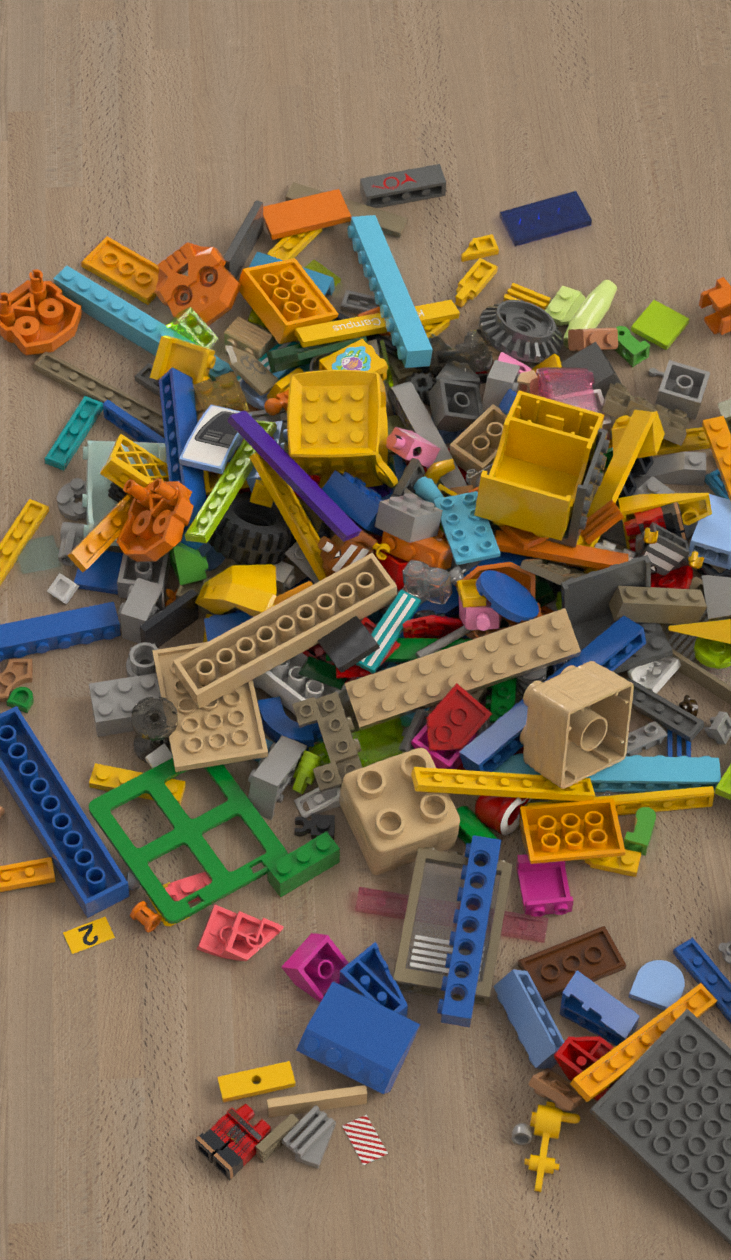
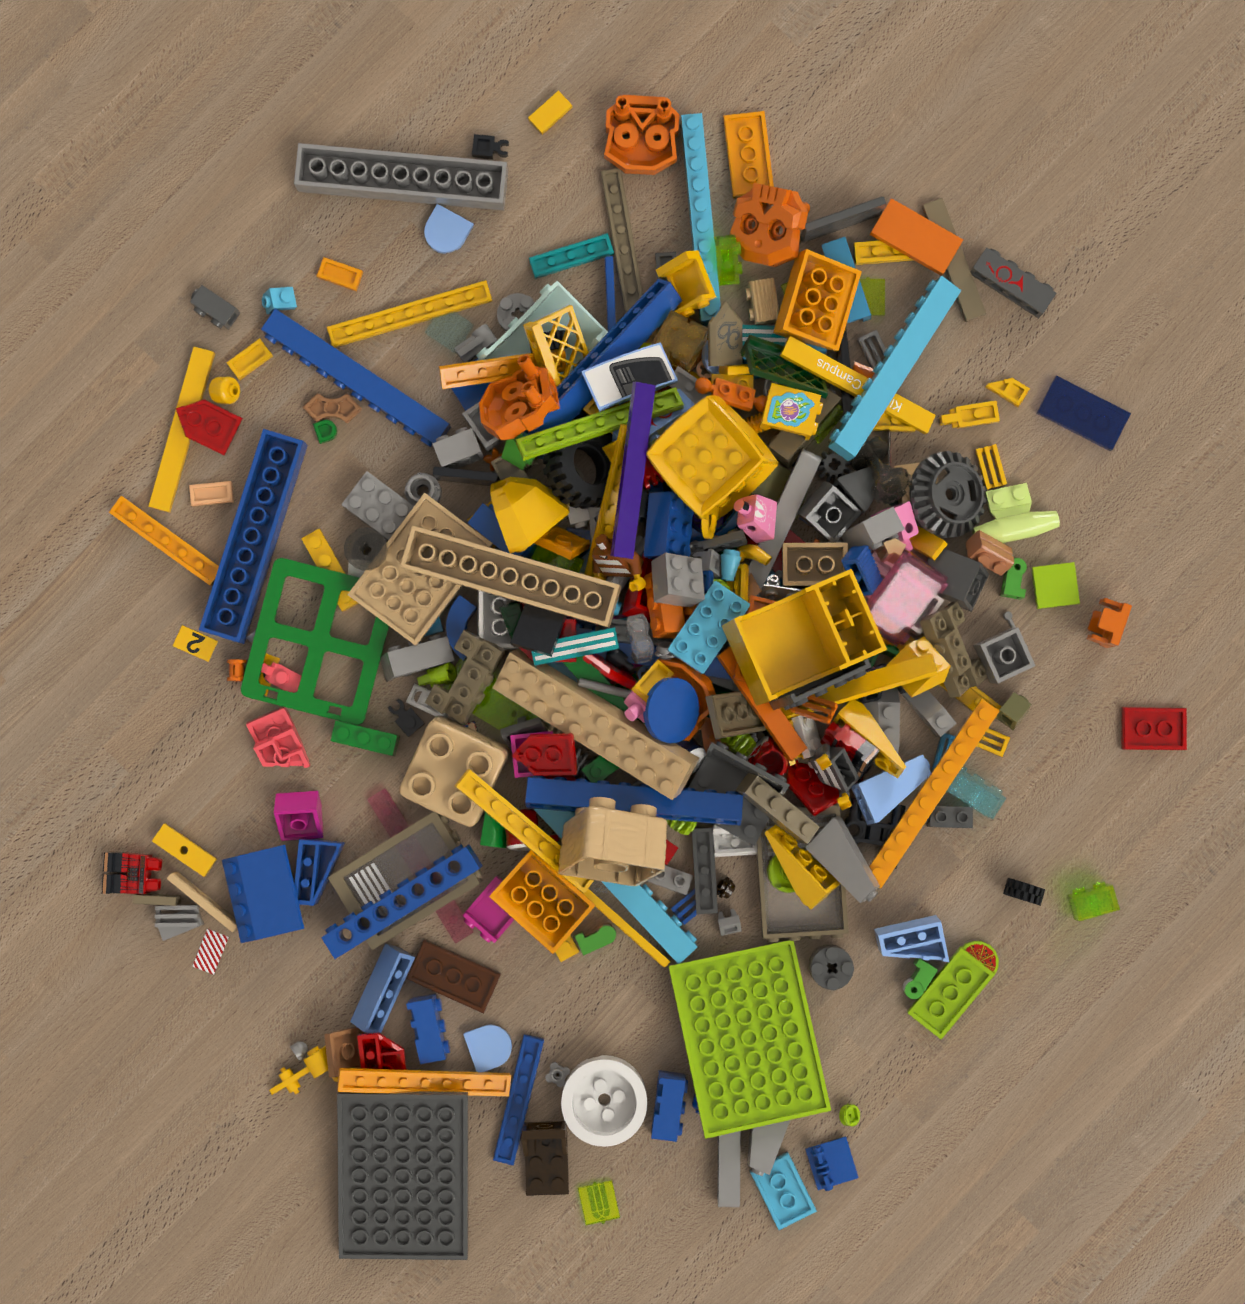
camera: 50 degrees right, 30 degrees up
(63, 588) = (432, 374): white tile -> none

